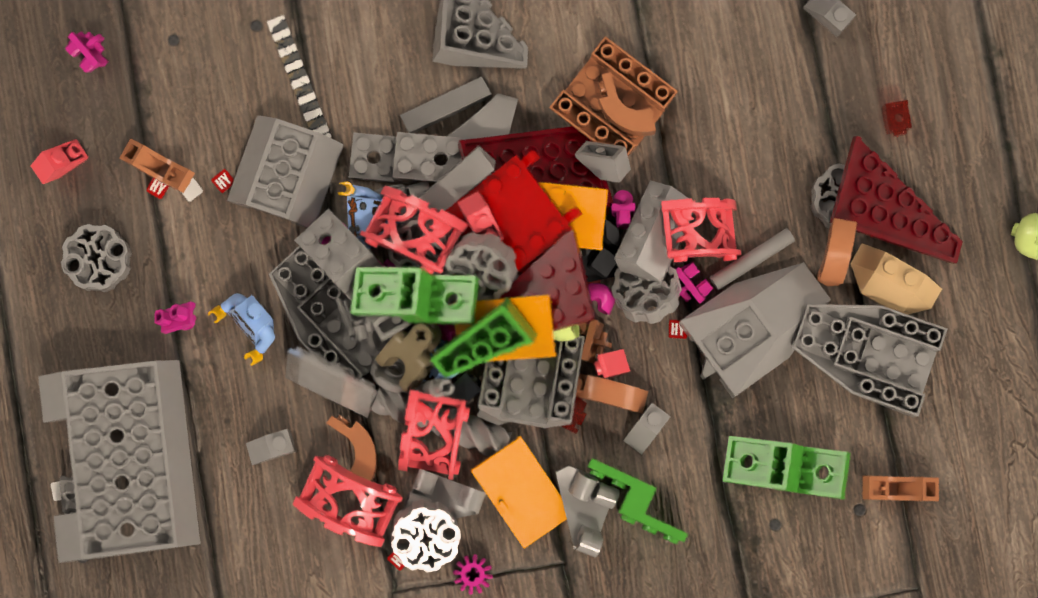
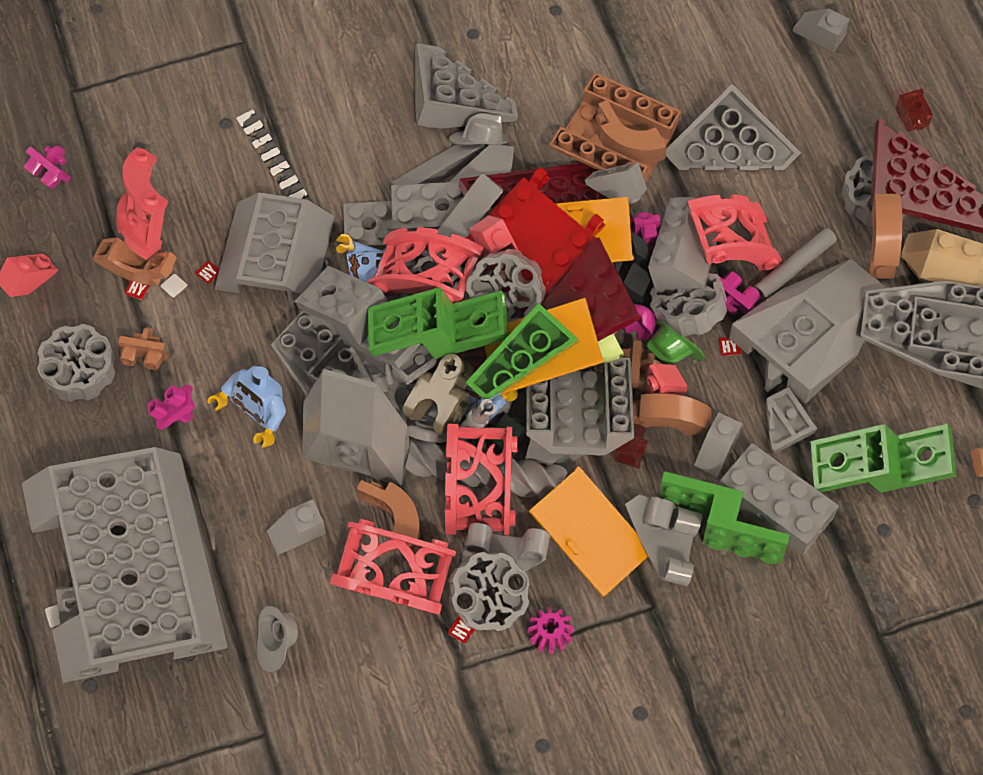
camera: 10 degrees left, 20 degrees down
(146, 252) = (144, 346): none -> nougat hips
(162, 122) = (137, 202): none -> coral fence
(241, 543) = (275, 636): none -> light grey piece
(489, 80) = (481, 129): none -> light grey piece
(620, 328) = (671, 346): none -> bright green piece
(688, 487) = (779, 498): none -> light grey brick
(712, 412) = (786, 421): none -> light grey wing
(721, 118) = (731, 136): none -> light grey slope

